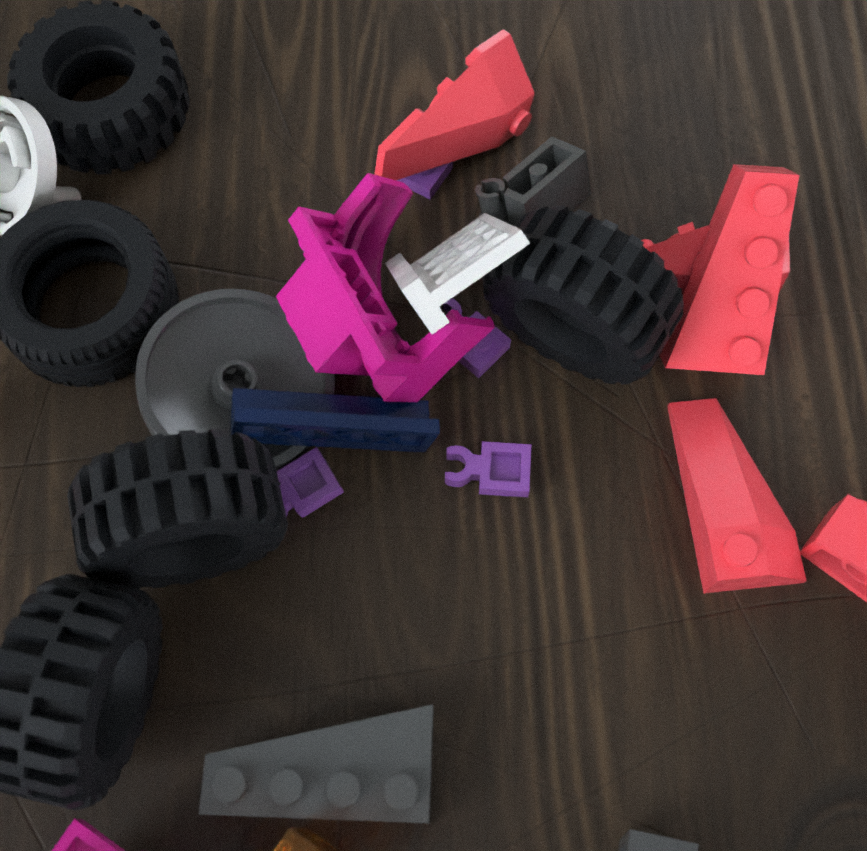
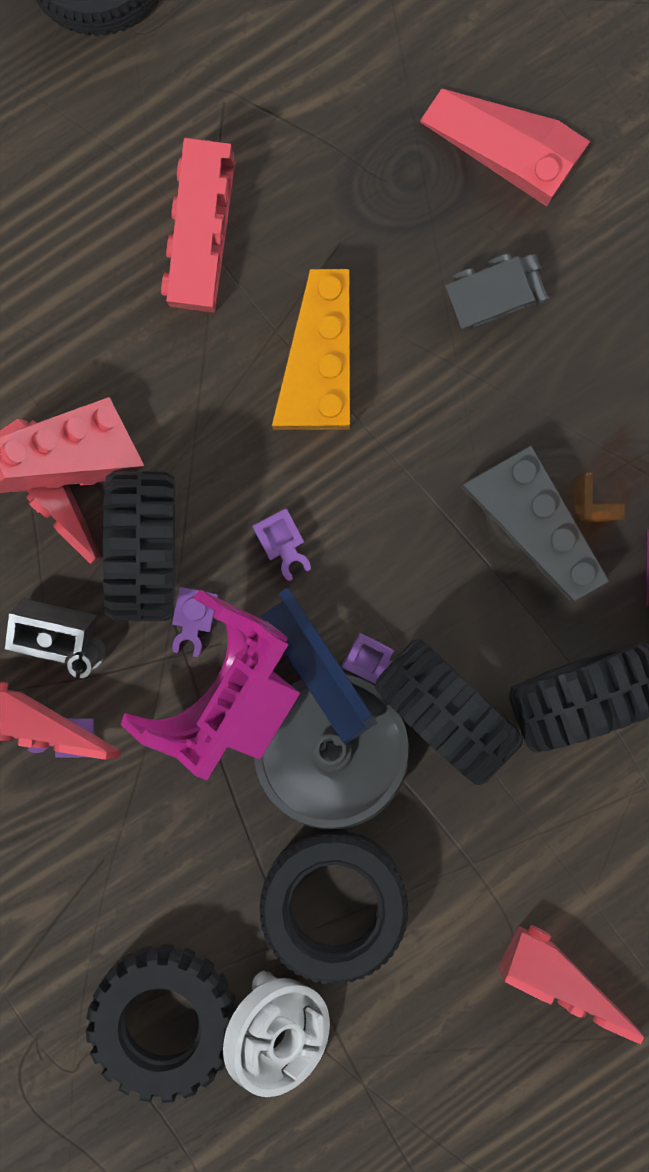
camera: 125 degrees left, 20 degrees up
(455, 266) = (195, 661): white fence -> none
(687, 633) = (318, 366): none -> light orange wedge
(732, 513) = (213, 368): coral wedge -> none

